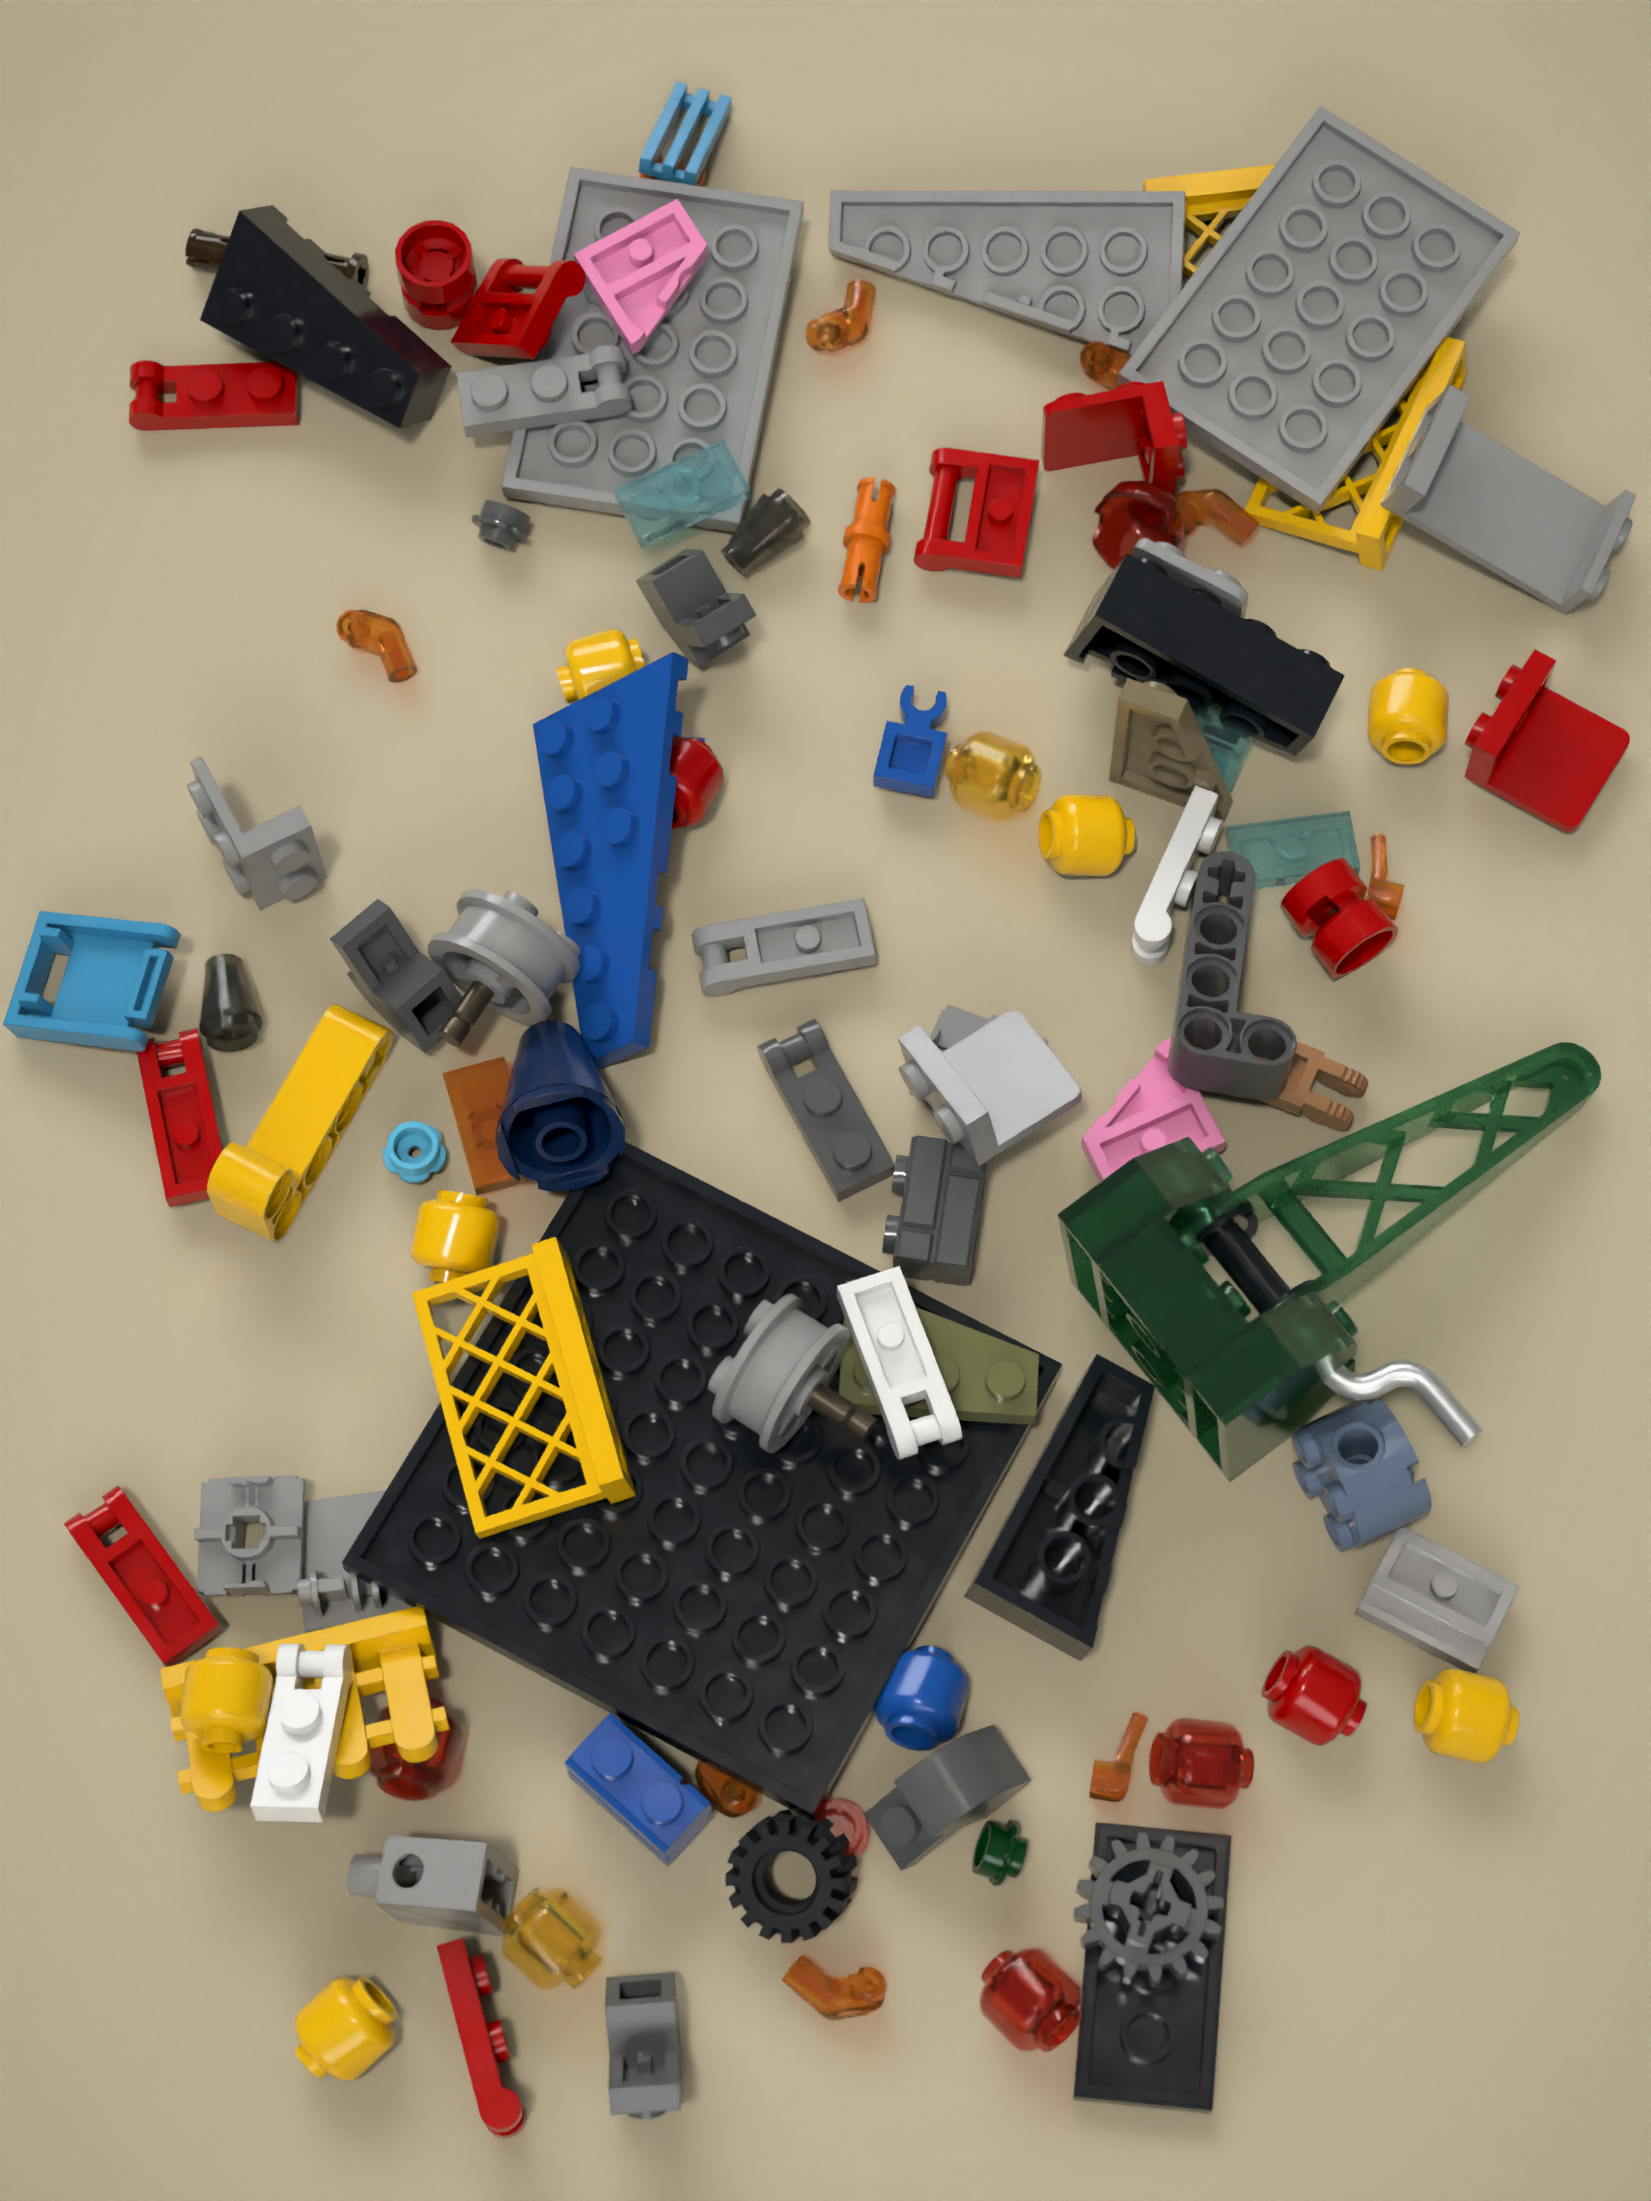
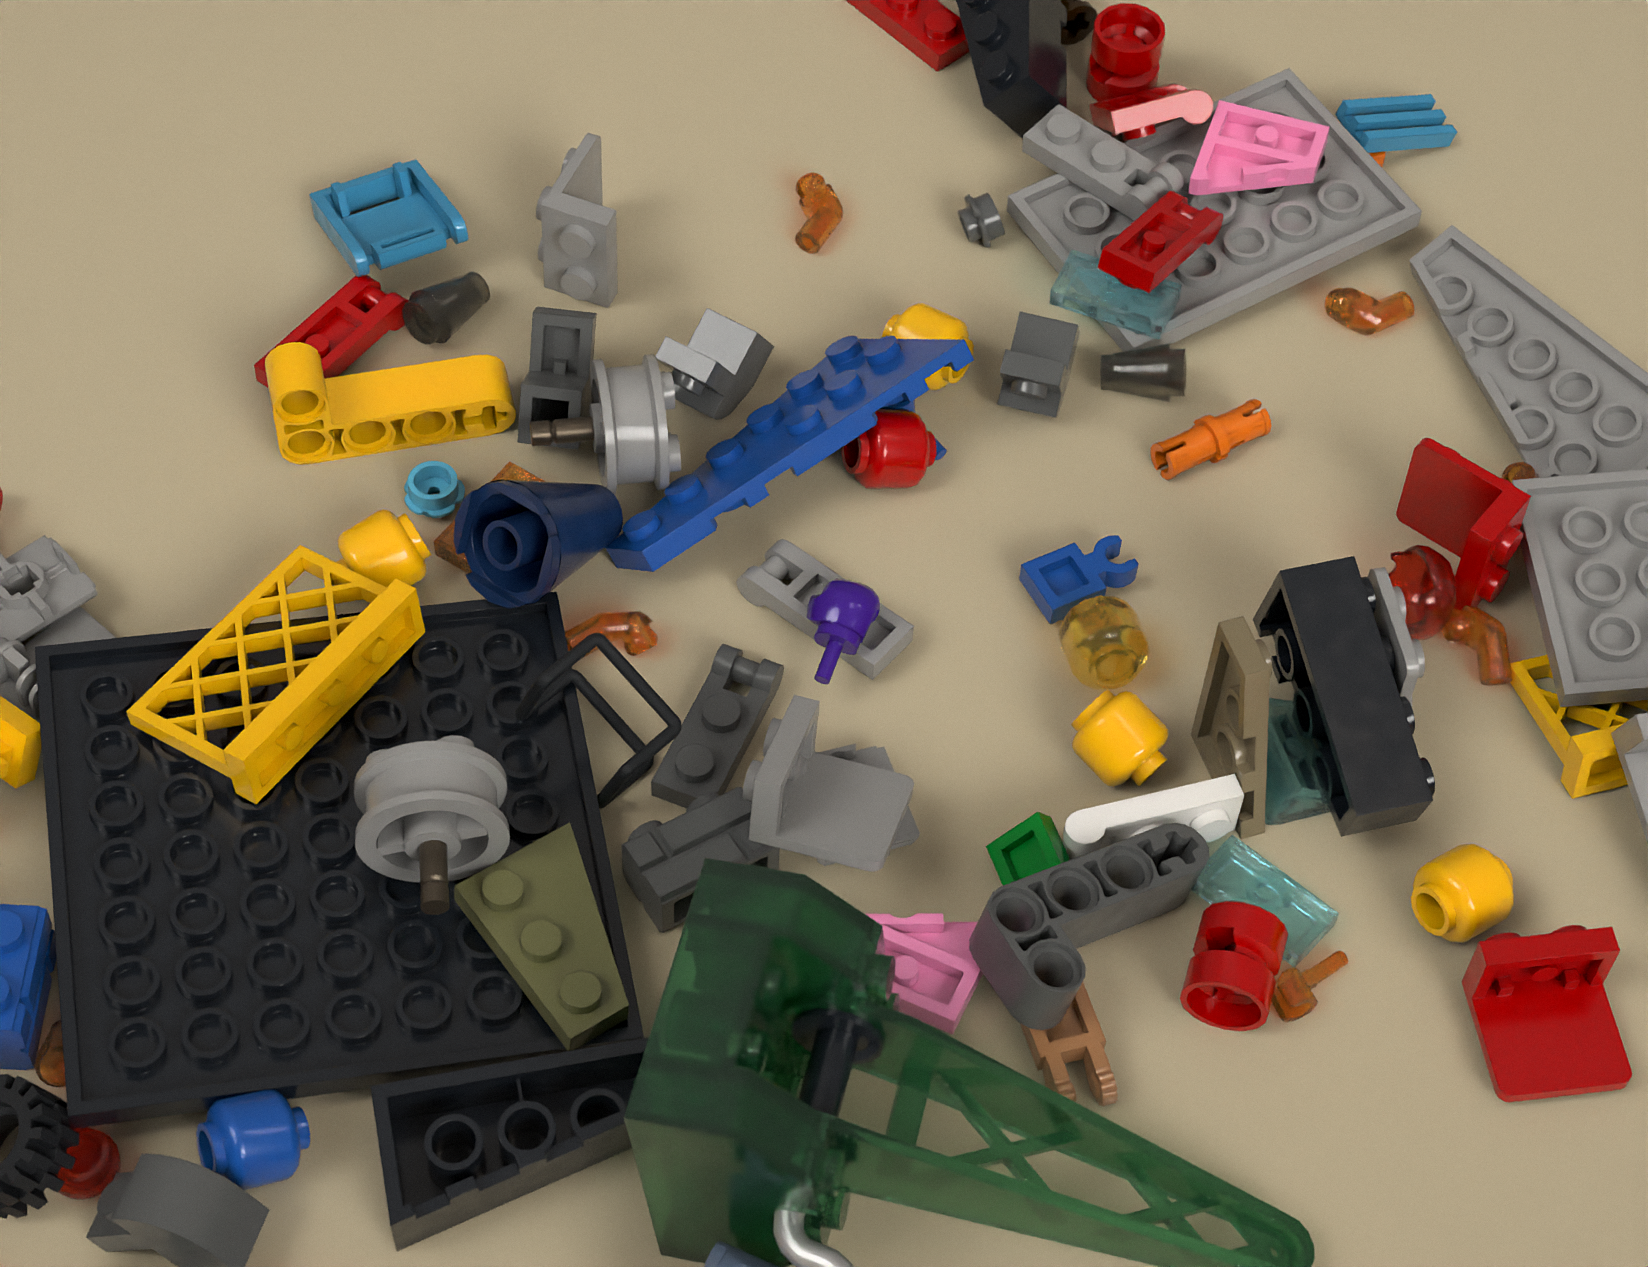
camera: 45 degrees right, 15 degrees down
(483, 842) = (716, 364): none -> brick
(669, 1113) = (629, 626): none -> clear orange arm
(678, 422) = (1159, 242): none -> red plate
(741, 1179) = (560, 675): none -> black piece
(822, 942) = (843, 619): none -> dark purple piece
(898, 1360) = (517, 891): white plate -> none
(997, 514) = (1317, 505): red plate -> none
(1134, 981) = (1027, 849): none -> green plate

